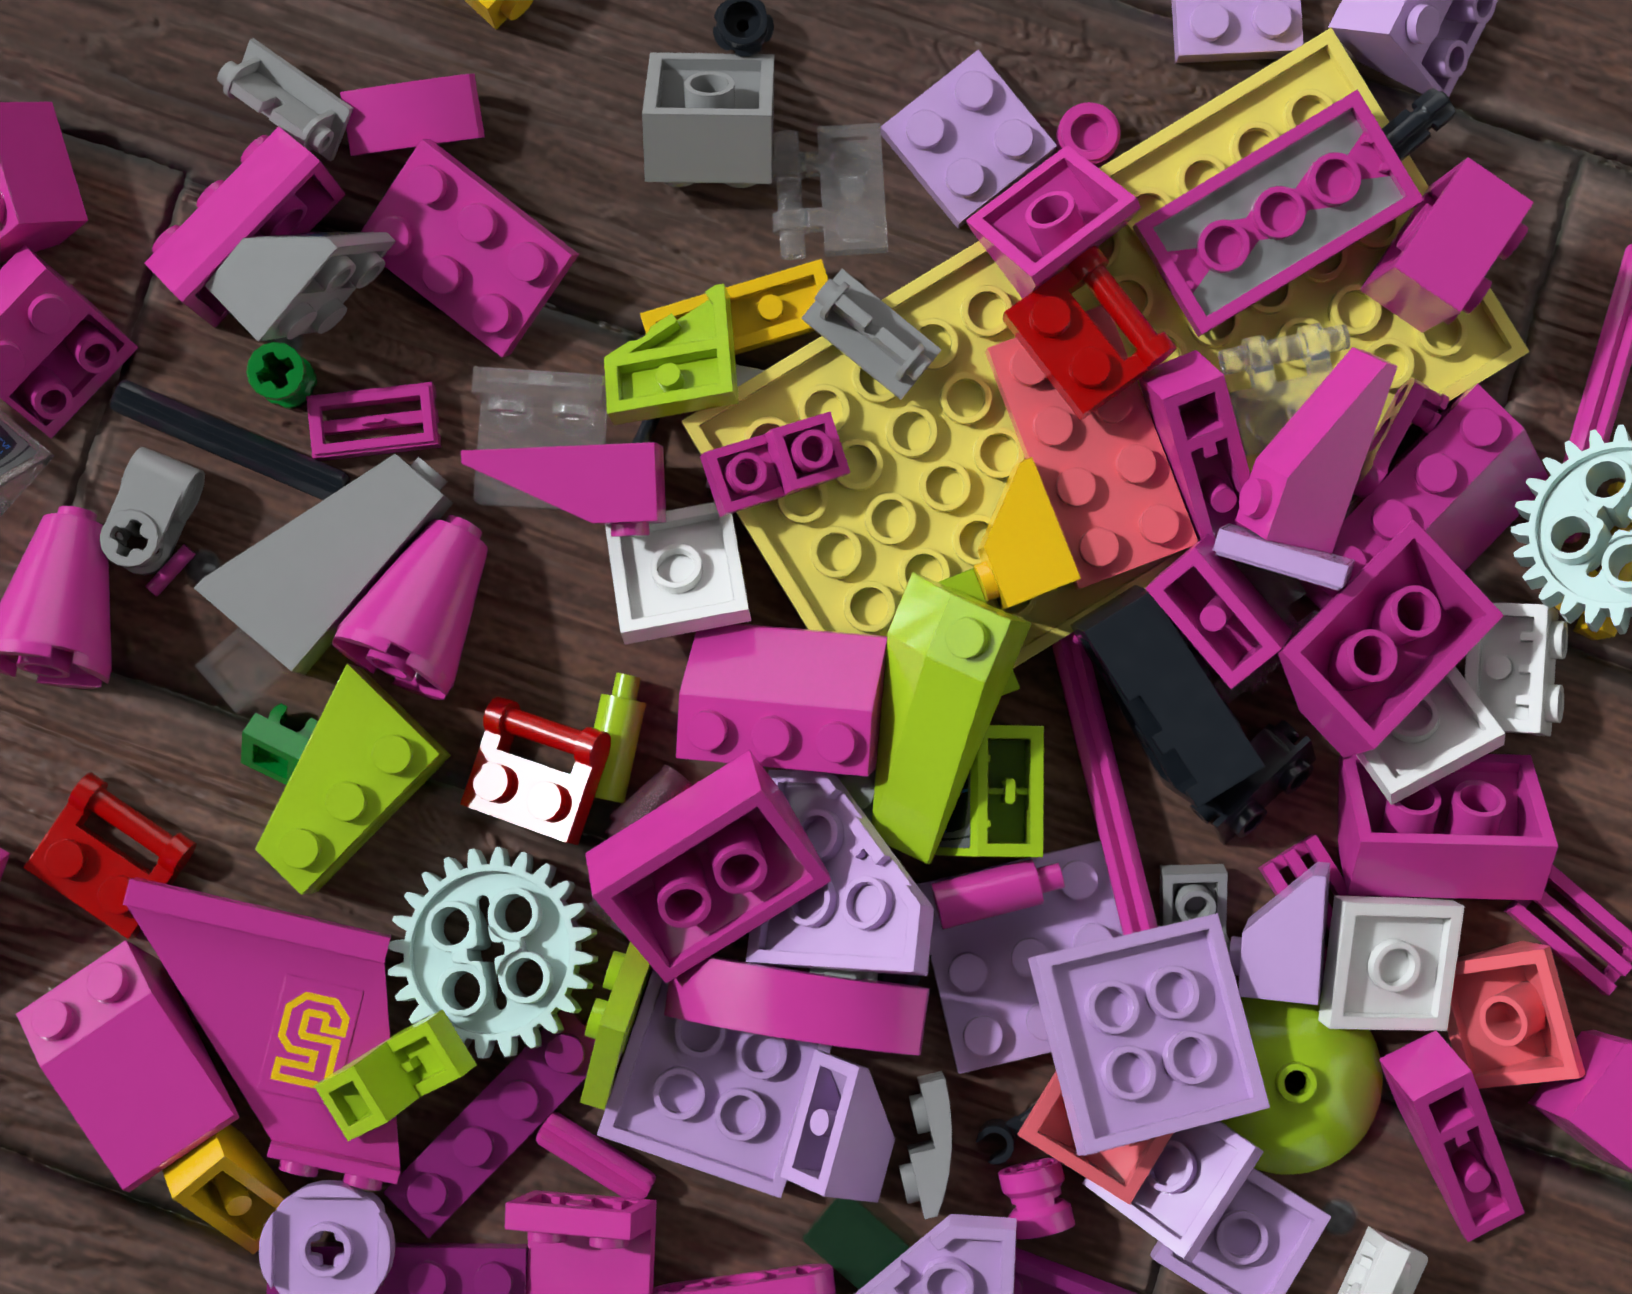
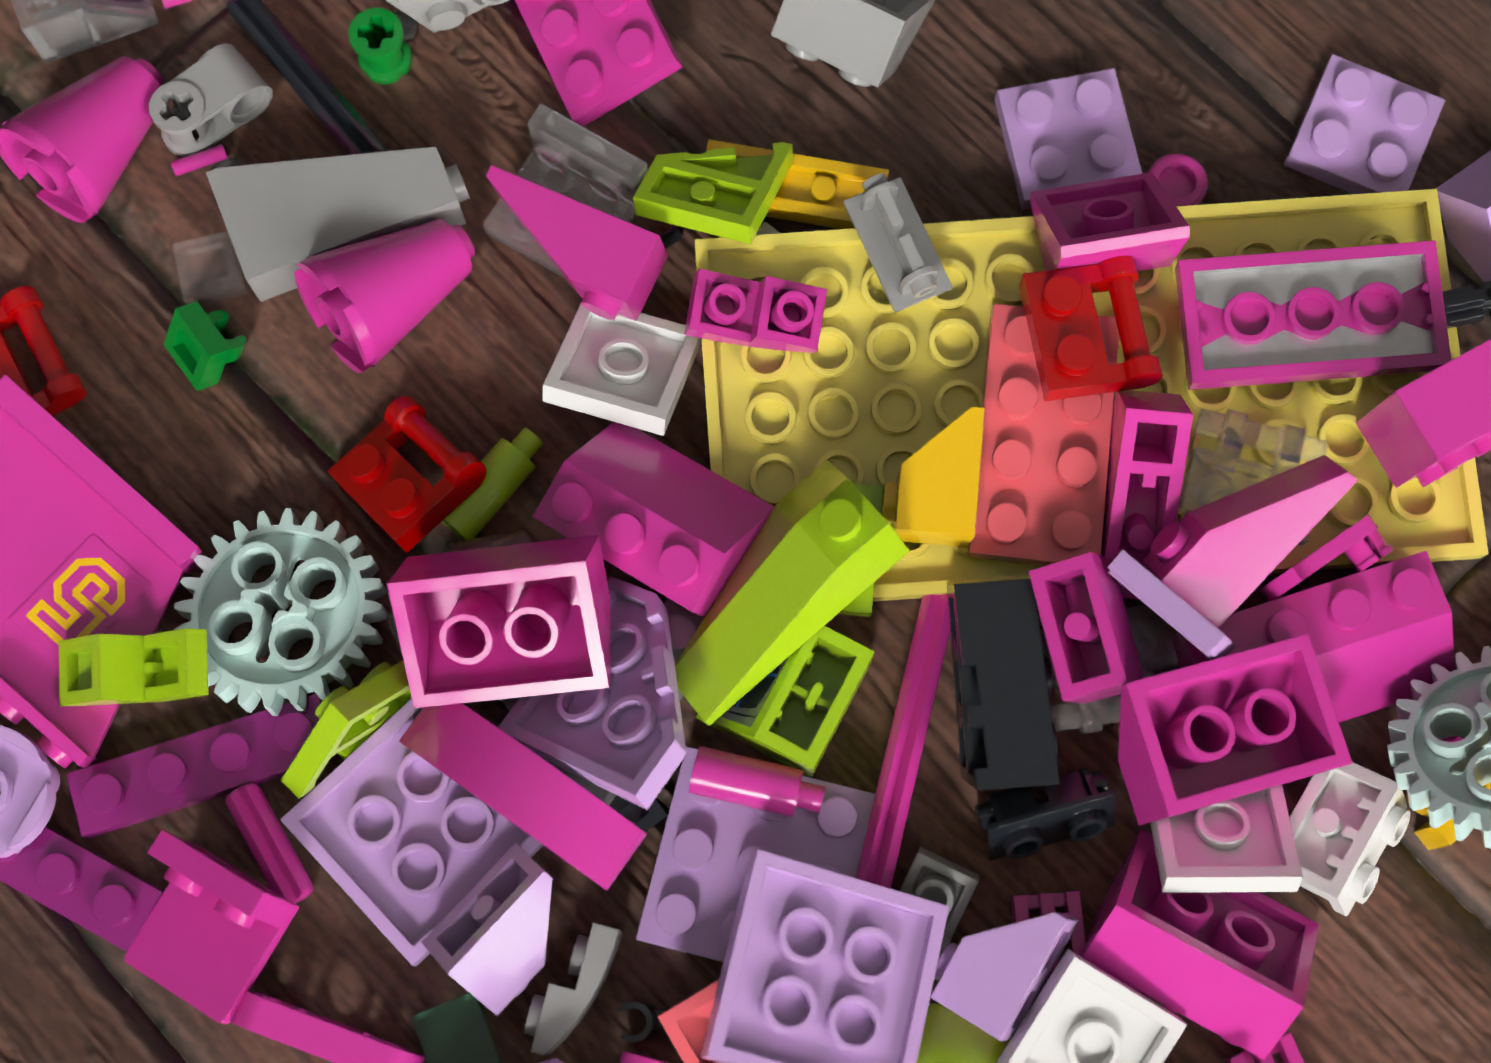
camera: 30 degrees right, 10 degrees down
(348, 781) = (239, 401): lime wedge -> none
(426, 416) = (412, 138): dark pink tile -> none
(850, 187) = (943, 131): clear plate -> none

